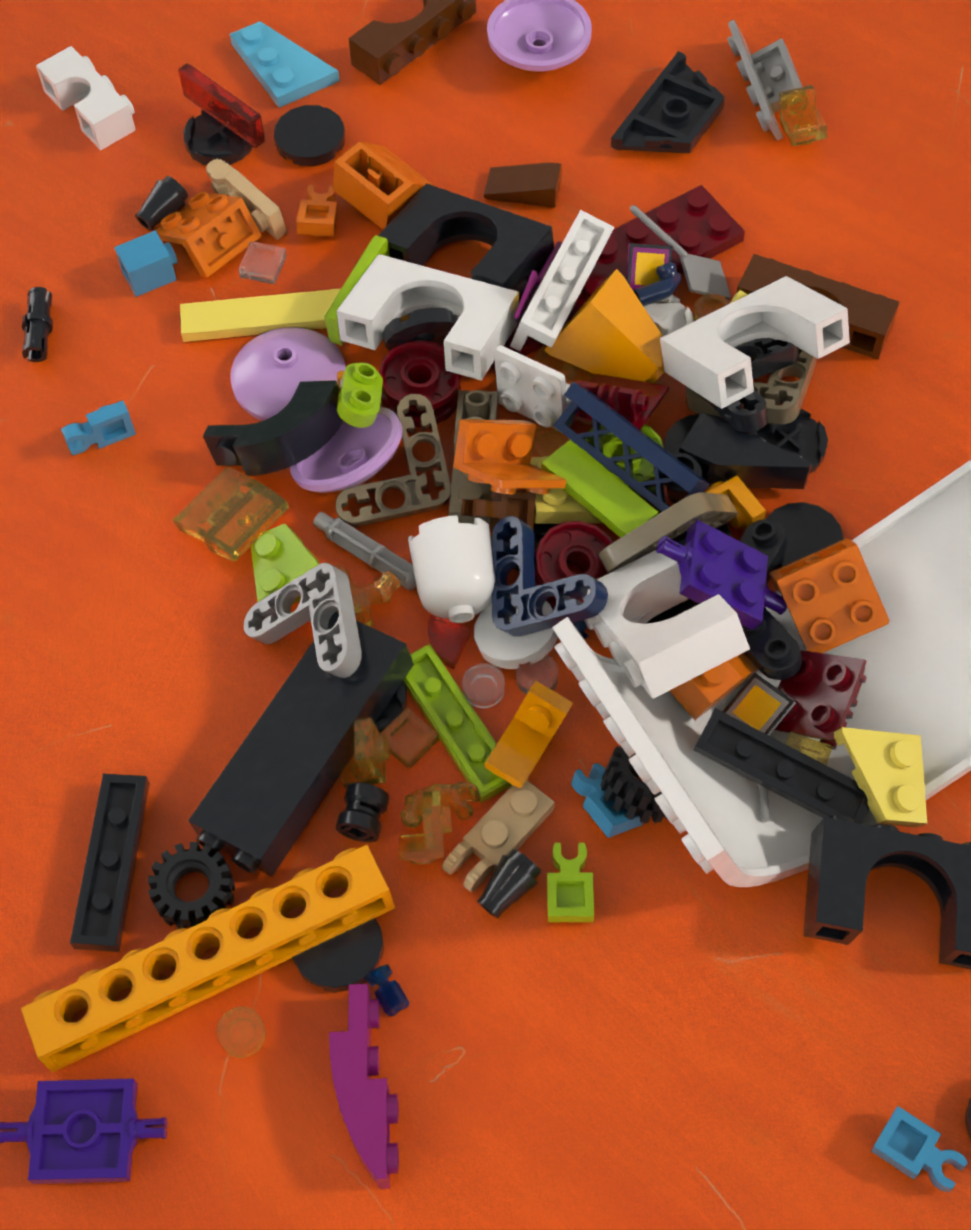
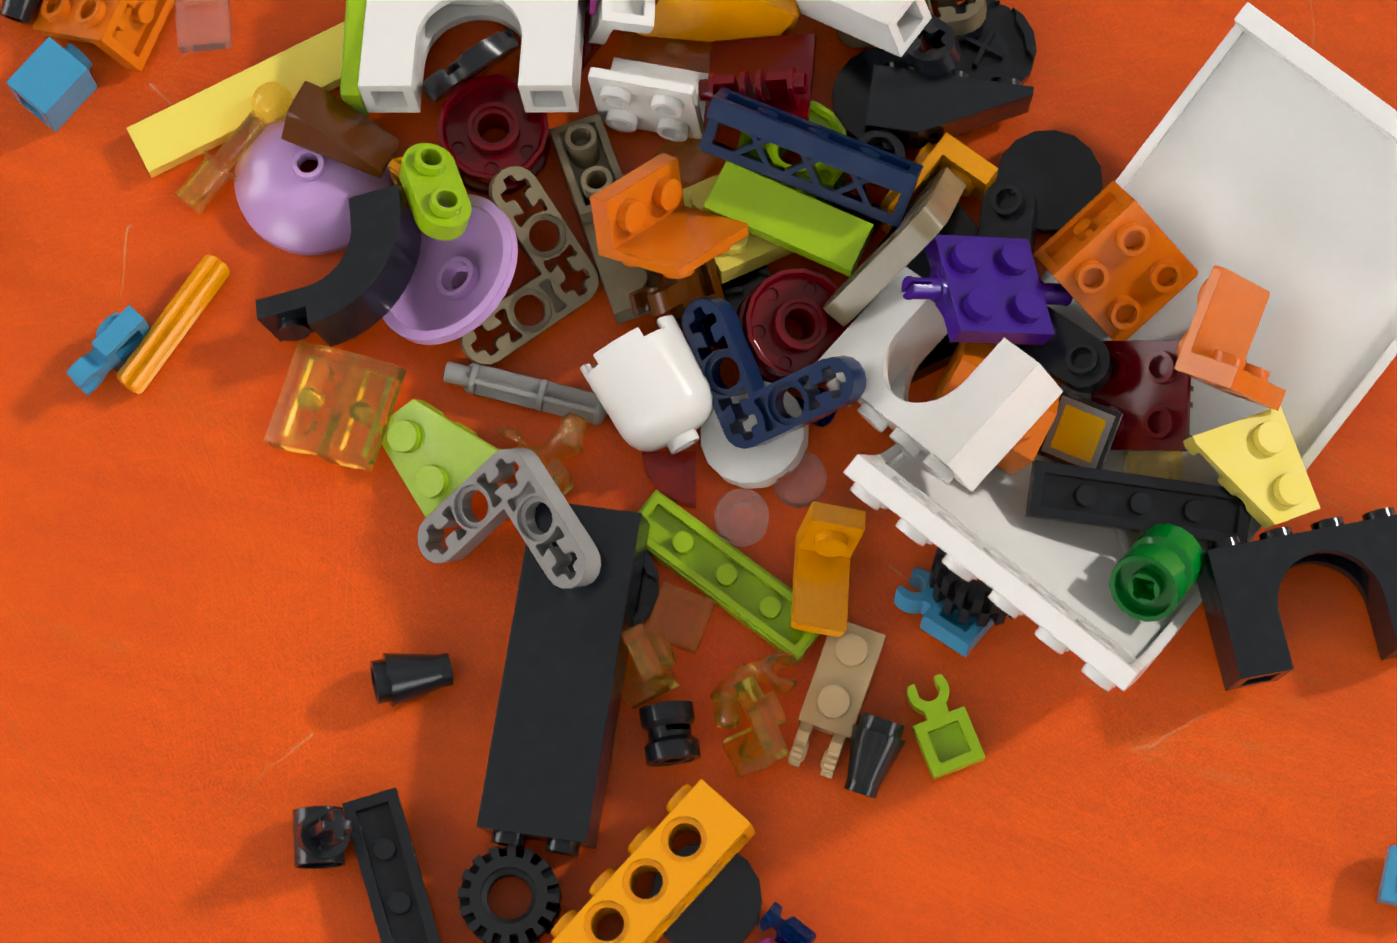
camera: 20 degrees left, 15 degrees up
(76, 791) = (320, 837): none -> black axle
(150, 429) = (173, 324): none -> light orange axle
(194, 706) = (408, 676): none -> black cone
(279, 317) = (268, 106): none -> clear yellow pin
(311, 339) = (337, 131): none -> reddish brown slope
(778, 819) = (1156, 572): none -> green wheel
(892, 665) = (1221, 338): none -> orange bracket

